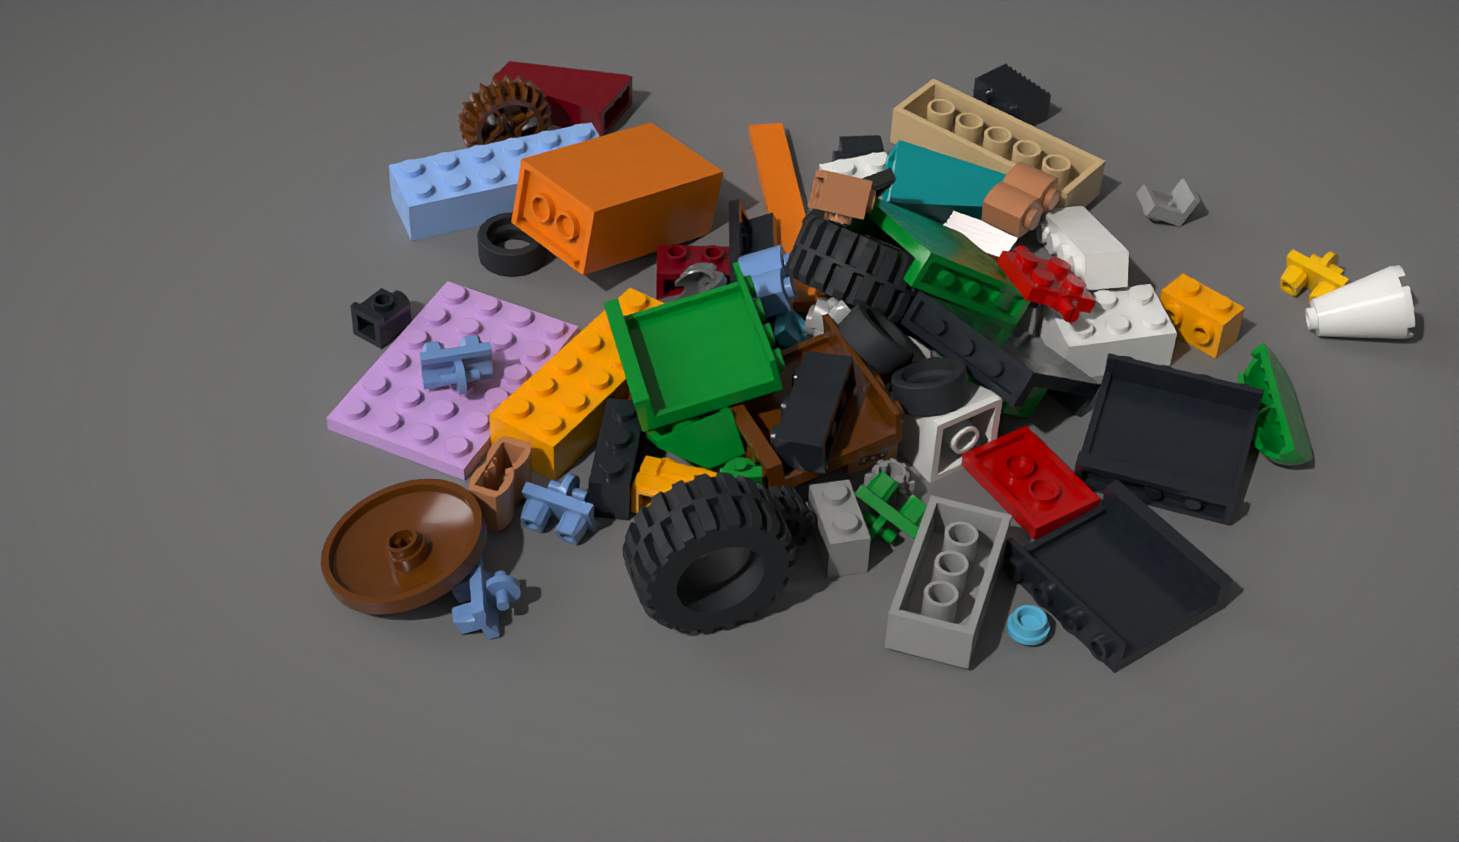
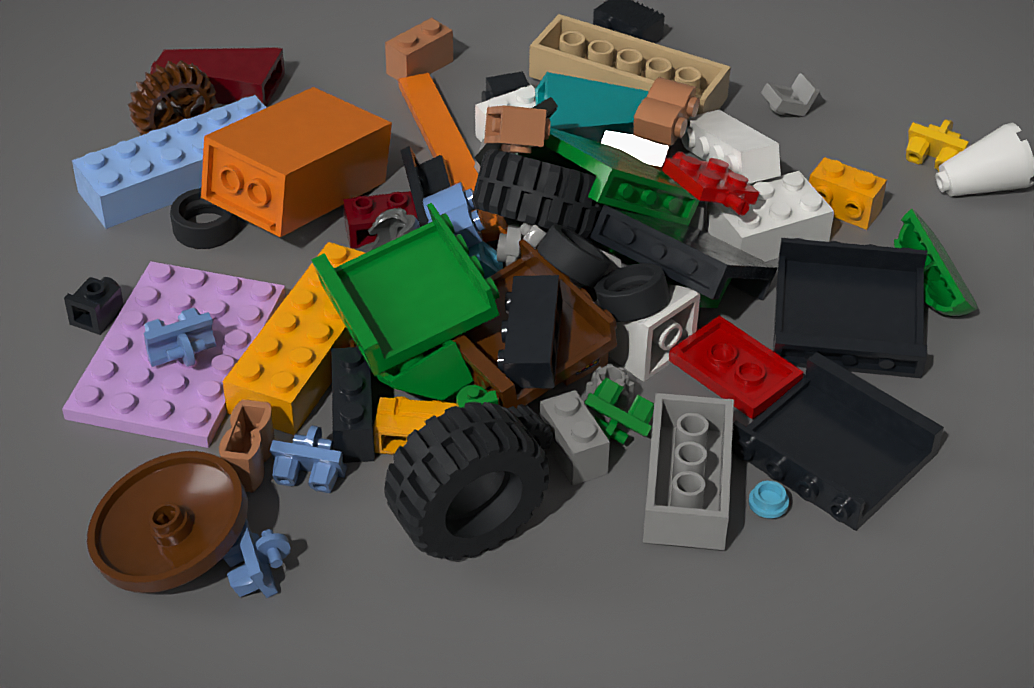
camera: 10 degrees left, 0 degrees up
(778, 97) = (419, 50): none -> nougat brick

